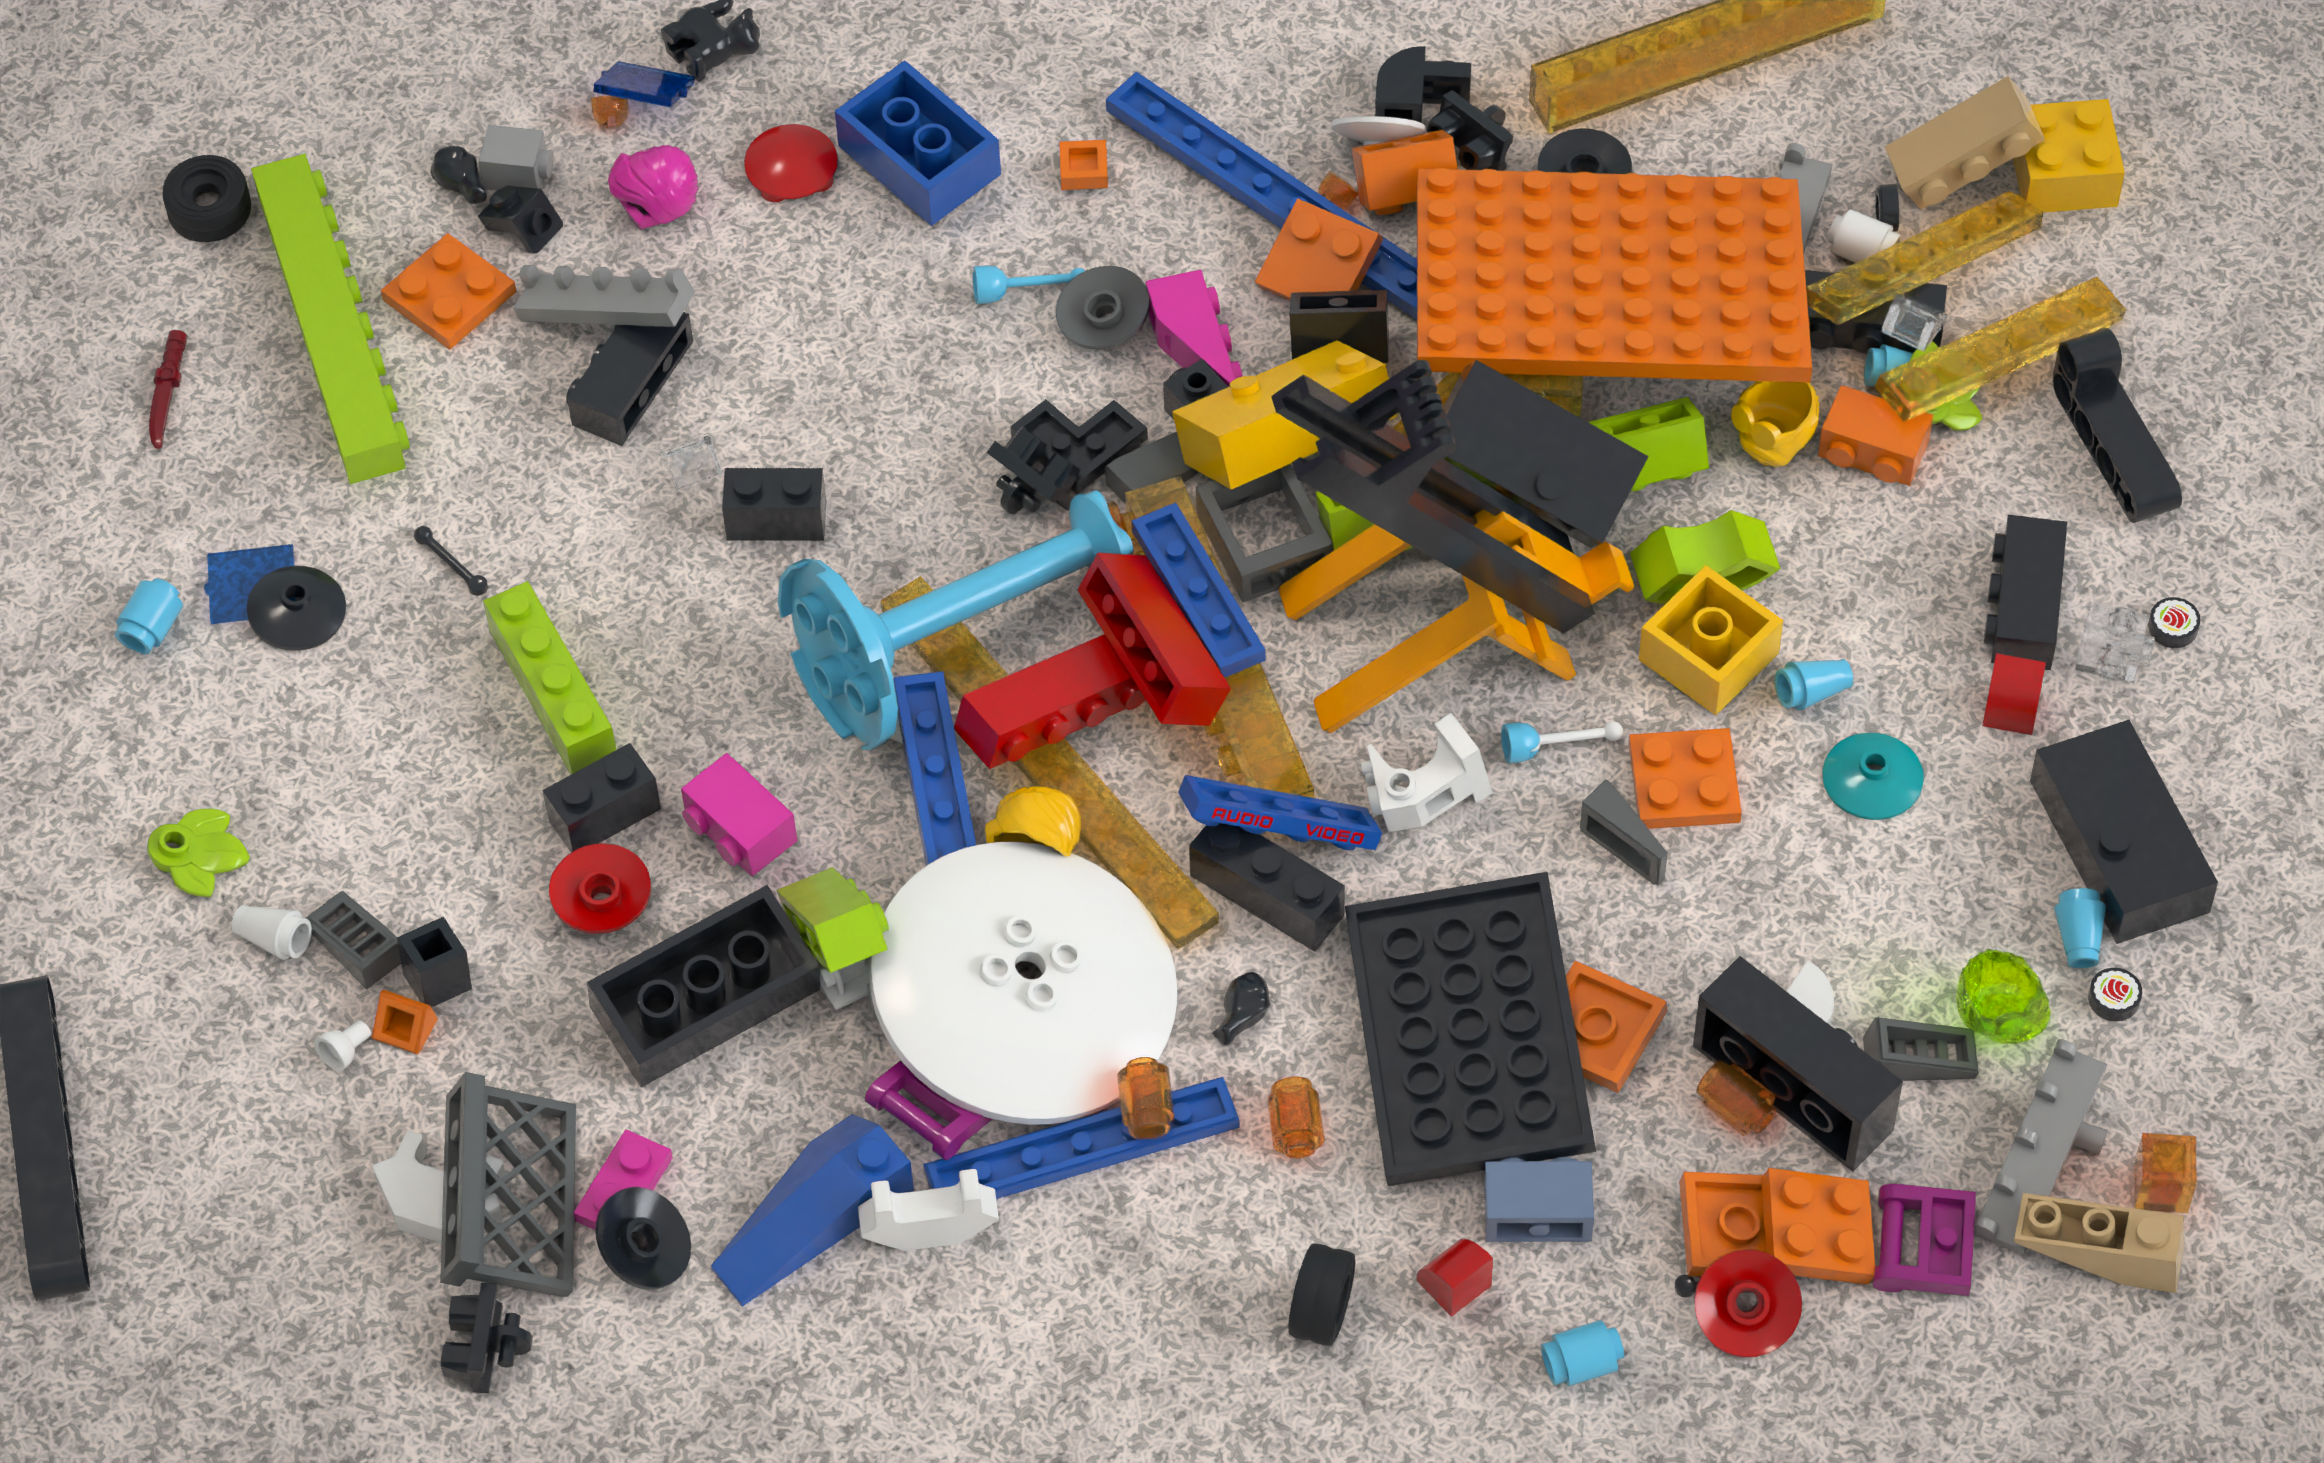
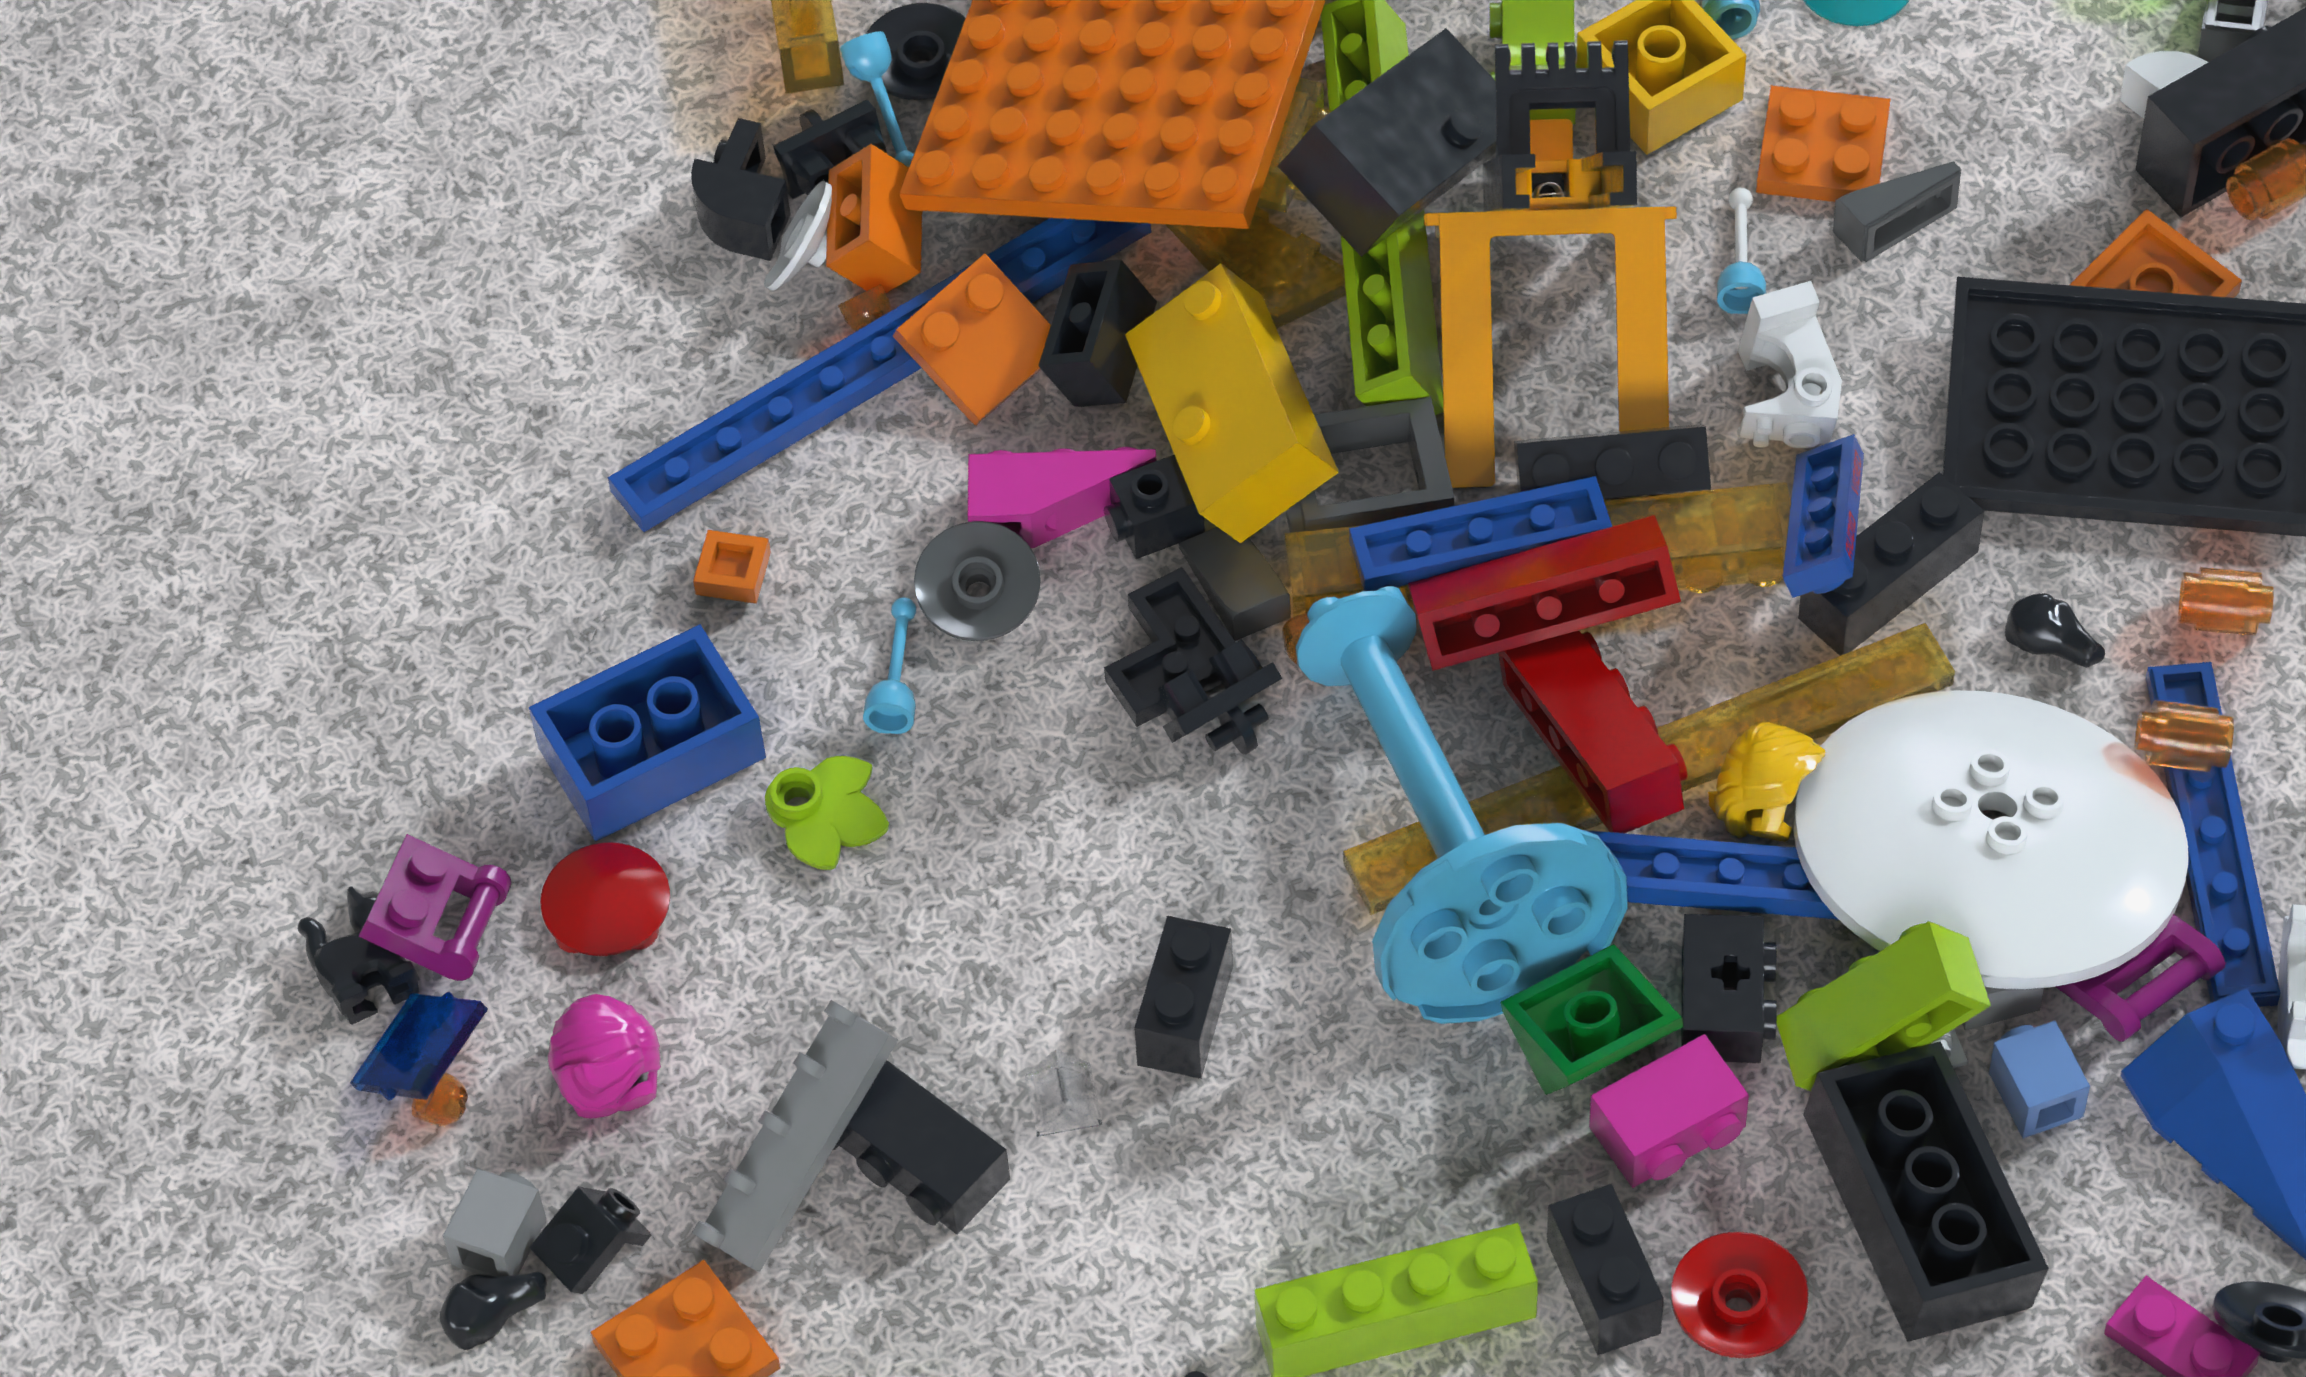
camera: 75 degrees left, 0 degrees up
(749, 47) = (415, 899): none -> magenta plate
(804, 750) = (1587, 1018): none -> green slope
(823, 1051) = (2038, 1078): none -> medium blue brick
(858, 834) = (1722, 954): none -> black brick
(890, 273) = (834, 812): none -> lime plate
(1306, 676) = (1622, 461): none -> black brick
(1550, 130) = (868, 59): none -> medium azure hinge

